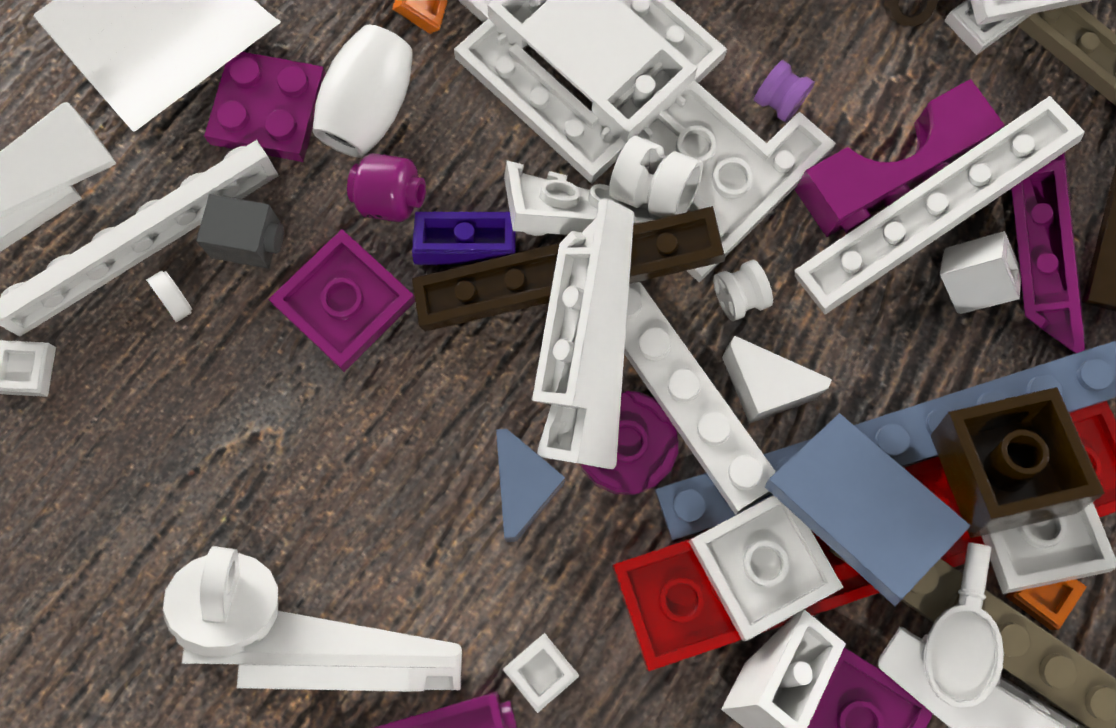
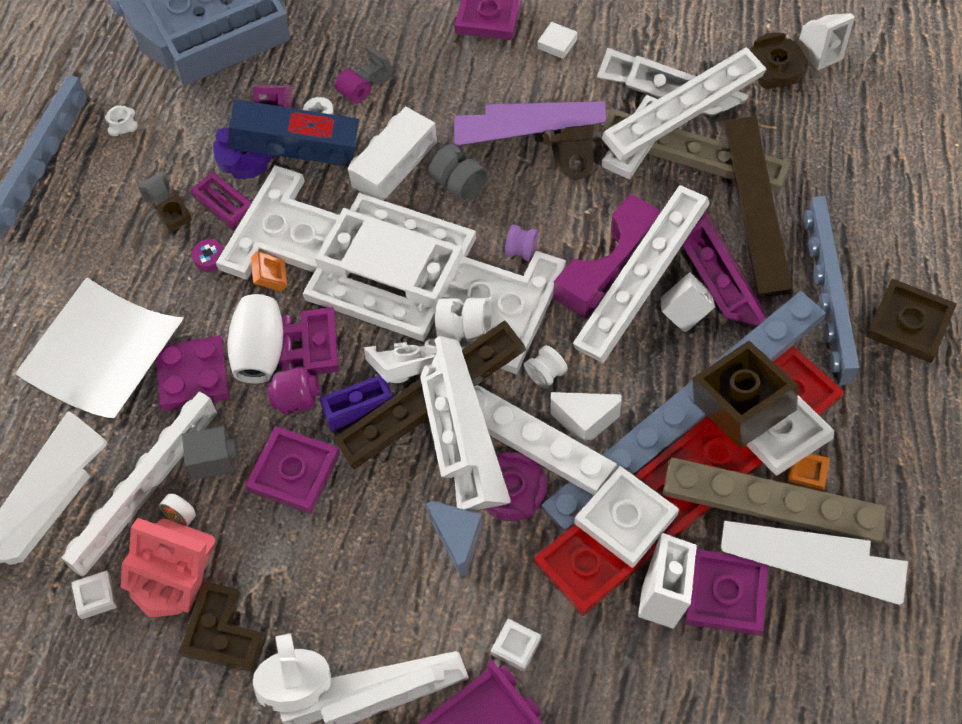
camera: 15 degrees left, 15 degrees down
(123, 368) = (165, 566): none -> coral piece
(145, 491) = (212, 636): none -> dark brown plate
(448, 129) = (318, 342): none -> magenta plate
(867, 508) = (671, 455): sand blue tile -> none
(964, 643) = (763, 508): white piece -> none

